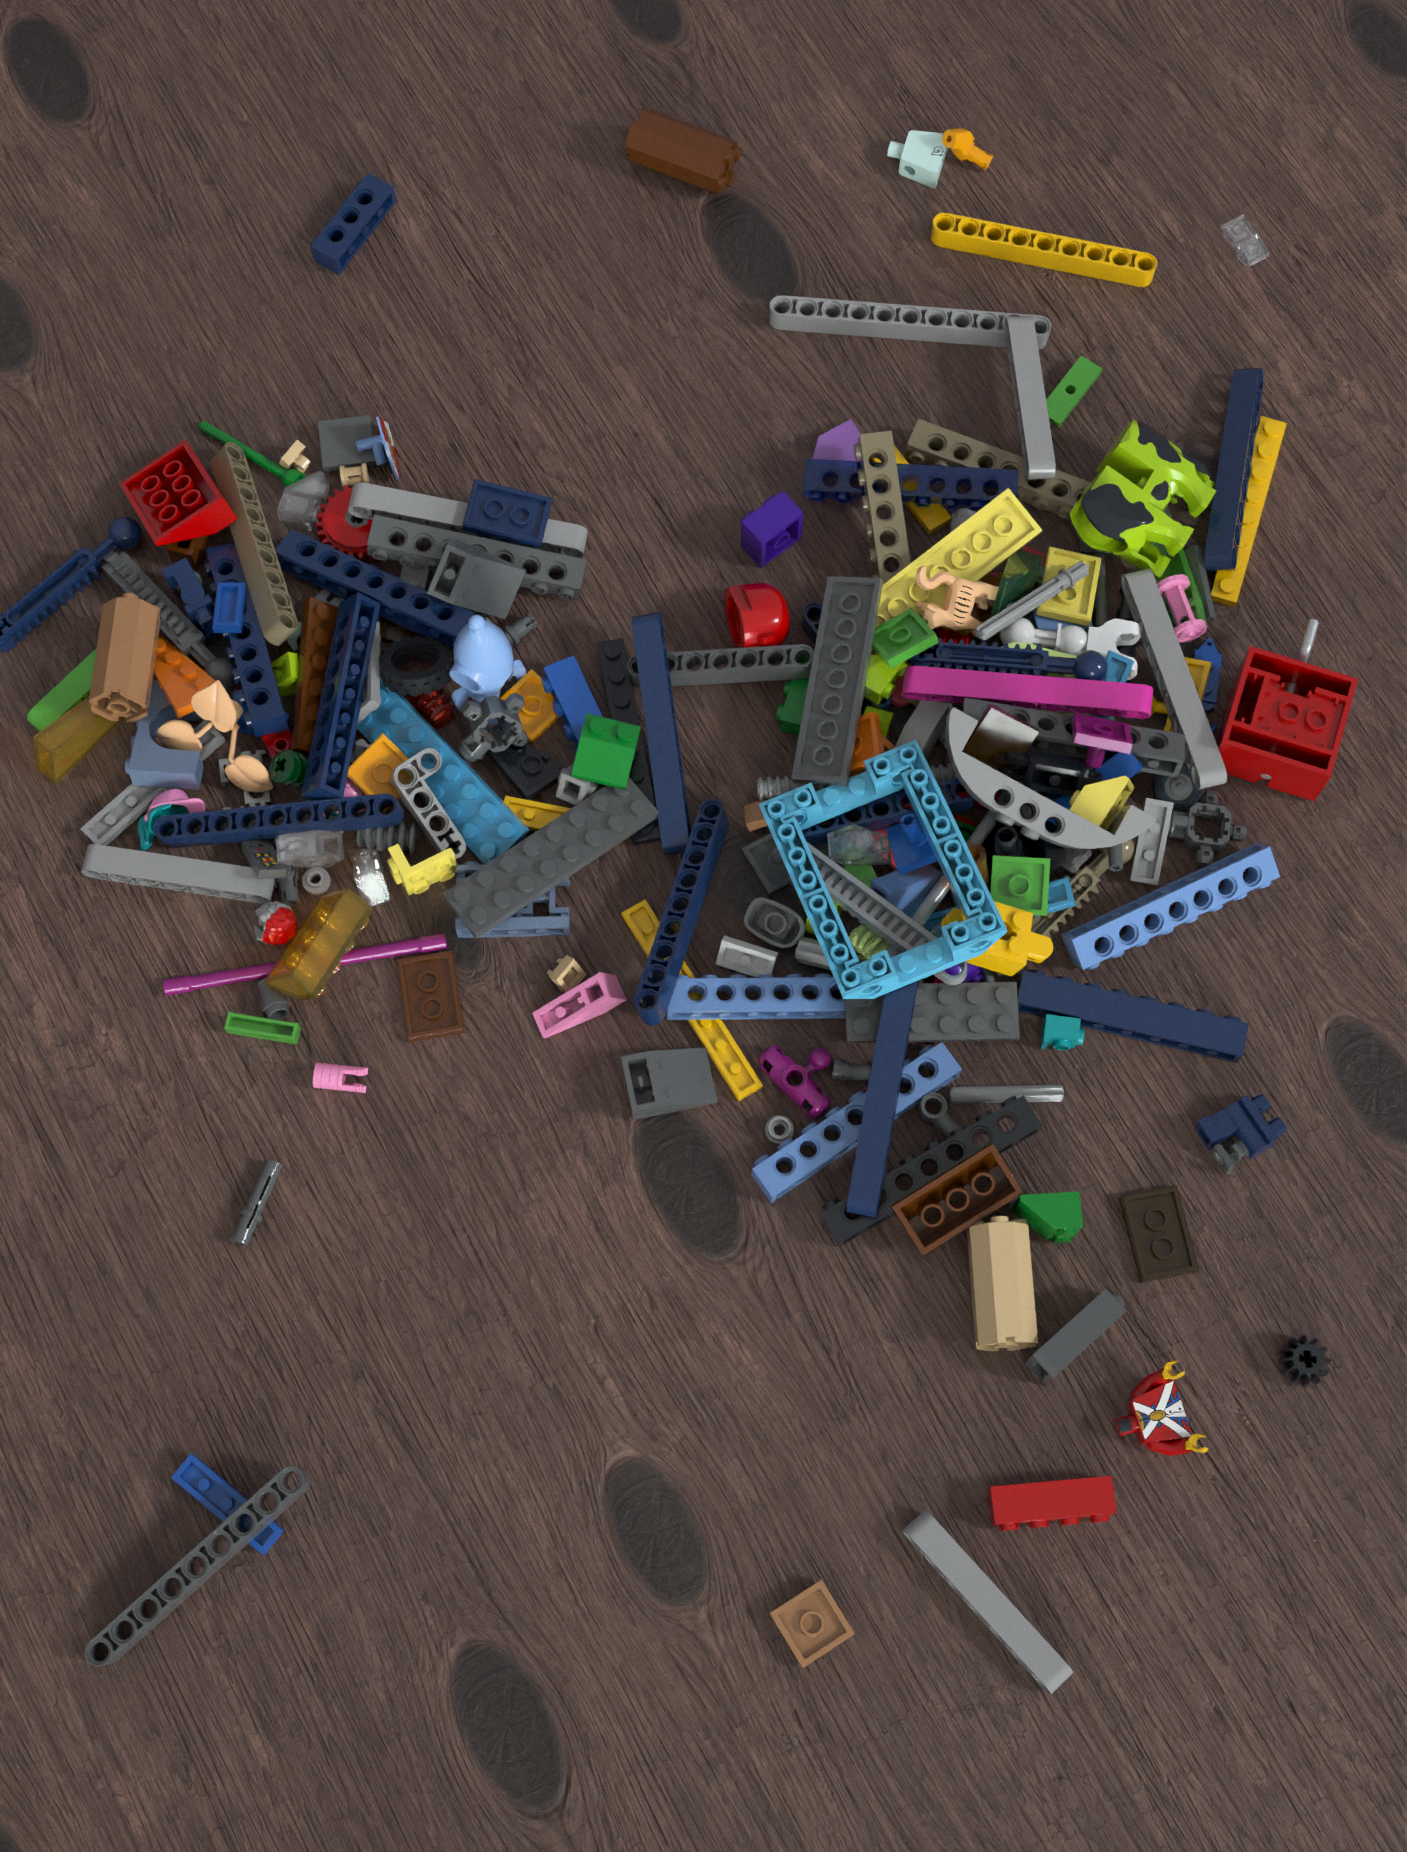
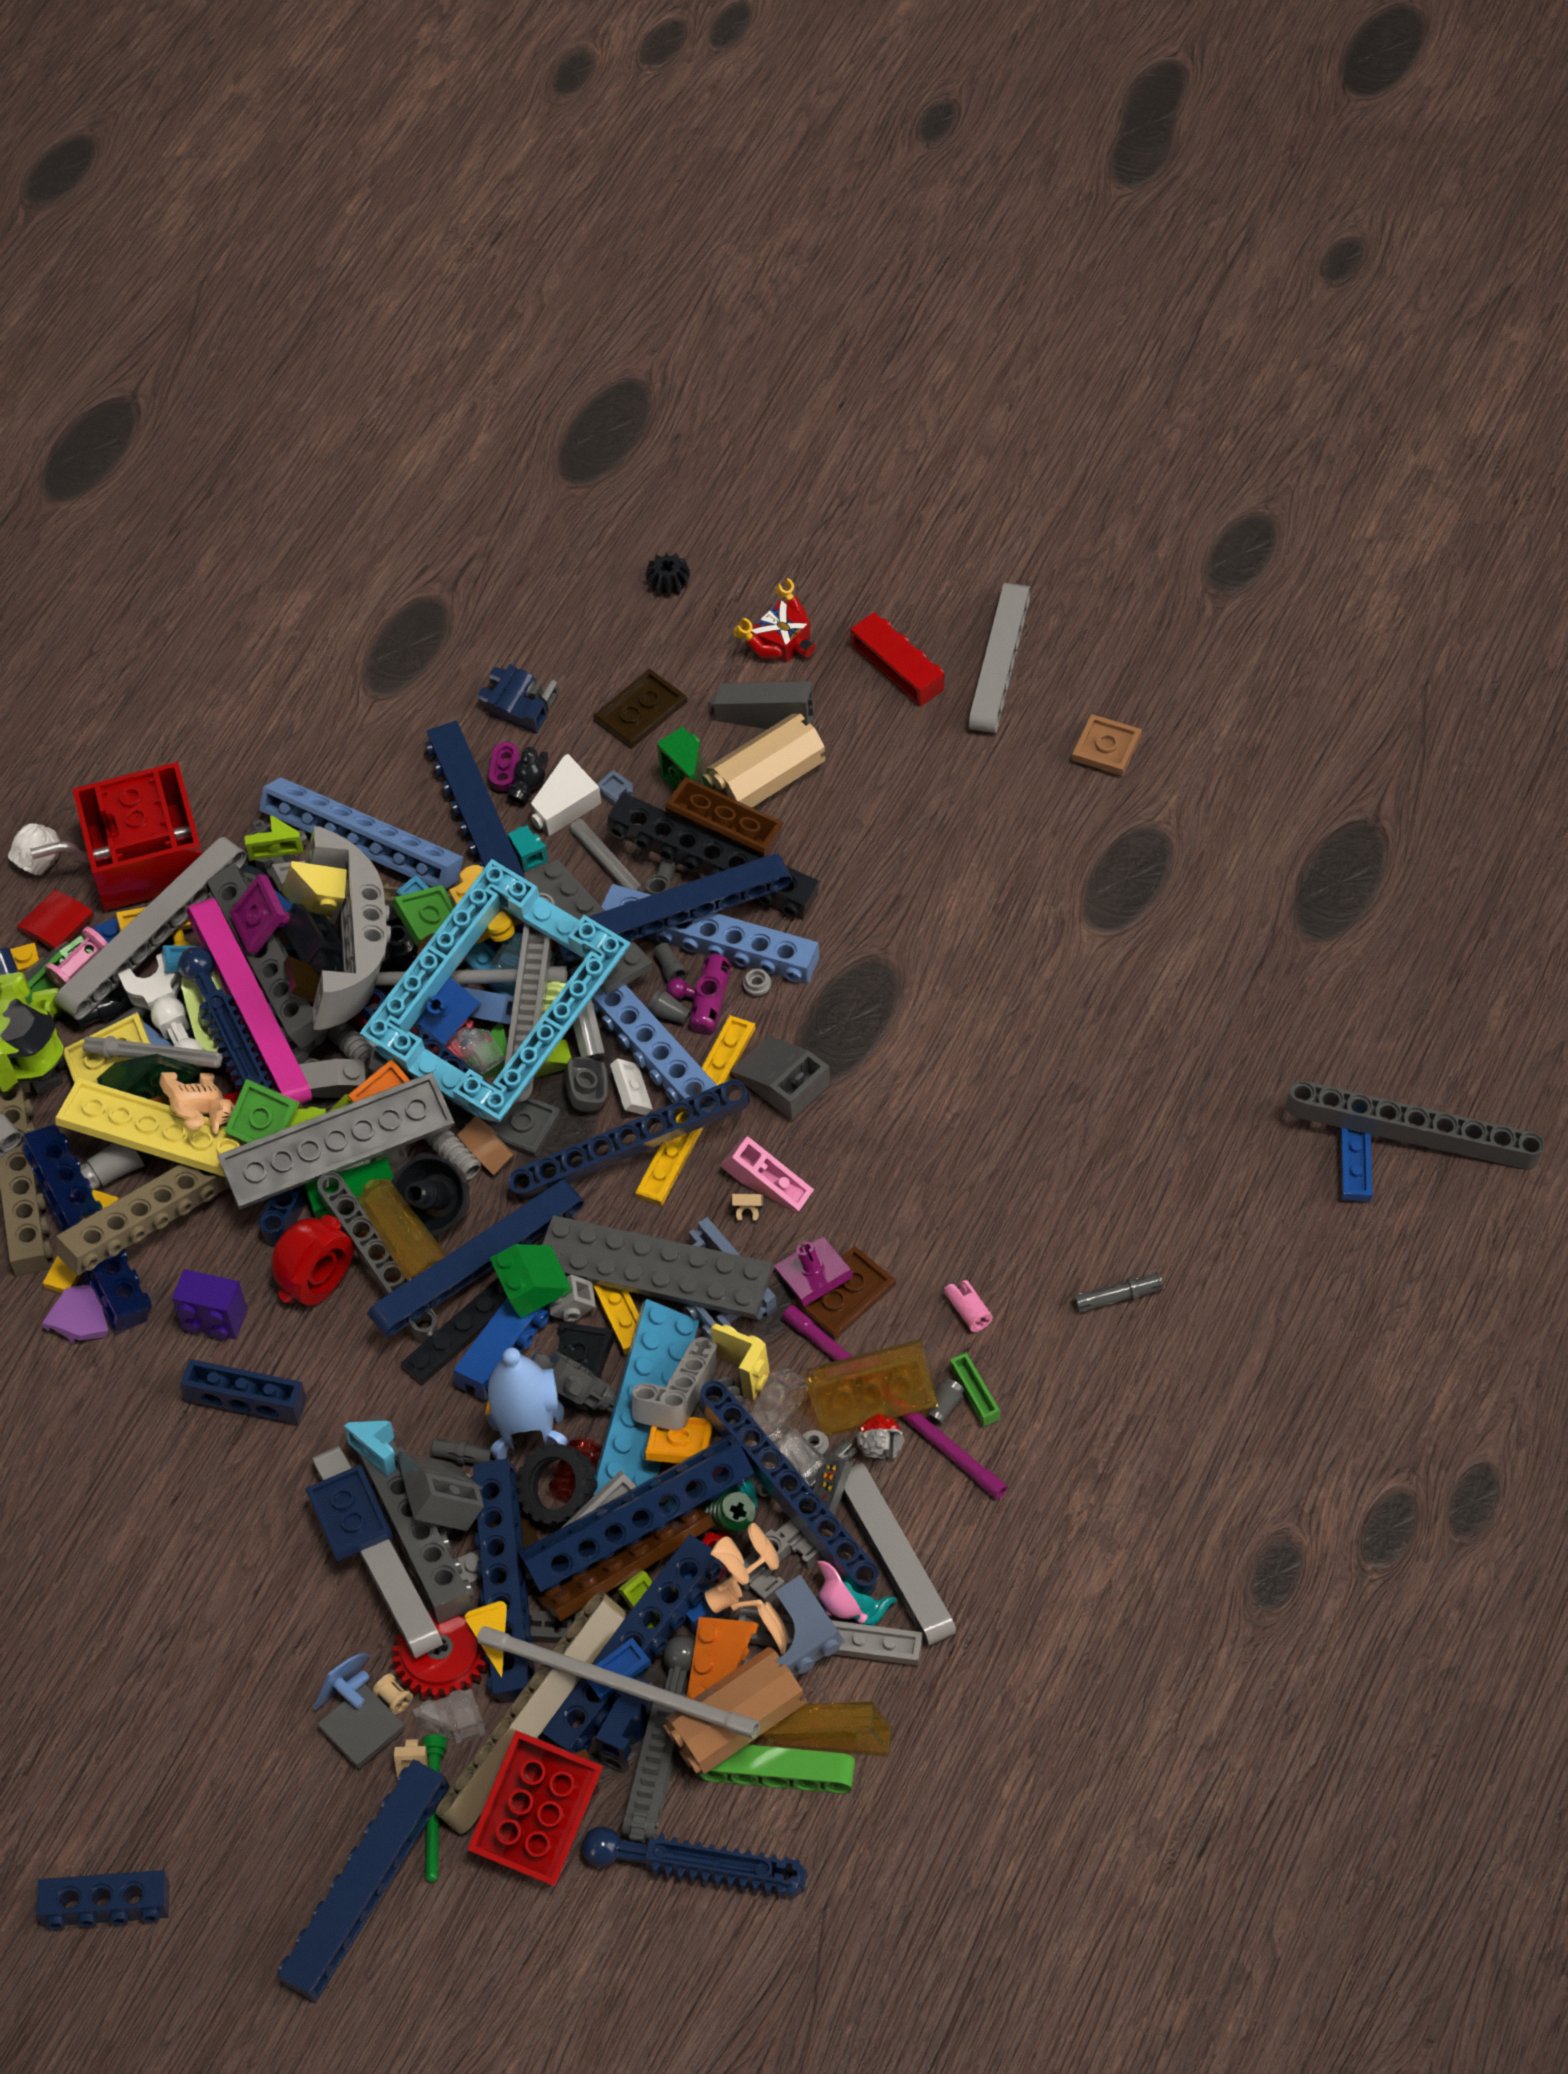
camera: 120 degrees left, 15 degrees down
(96, 627) = (730, 1720): none -> light grey piece
(228, 377) = (363, 1880): none -> dark blue brick
(339, 553) = (492, 1616): none -> yellow sticker
(462, 980) = (813, 1270): none -> magenta tile
(552, 554) = (372, 1442): none -> medium azure slope
(678, 513) = (243, 1391): none -> dark blue brick
(725, 692) = (400, 1228): none -> clear yellow slope
(747, 732) = (434, 1191): none -> black piece
(804, 1040) = (667, 1007): none -> dark grey cone
(1074, 1152) = (613, 785): none -> sand blue tile
(1097, 1099) = (564, 797): none -> white slope
(1140, 1081) = (528, 775): none -> black animal
(1170, 1070) = (502, 768): none -> magenta plate
(1200, 825) = (279, 842): none -> lime slope
(1248, 626) = (55, 920): none -> red slope
(1337, 650) = (30, 837): none -> white hair

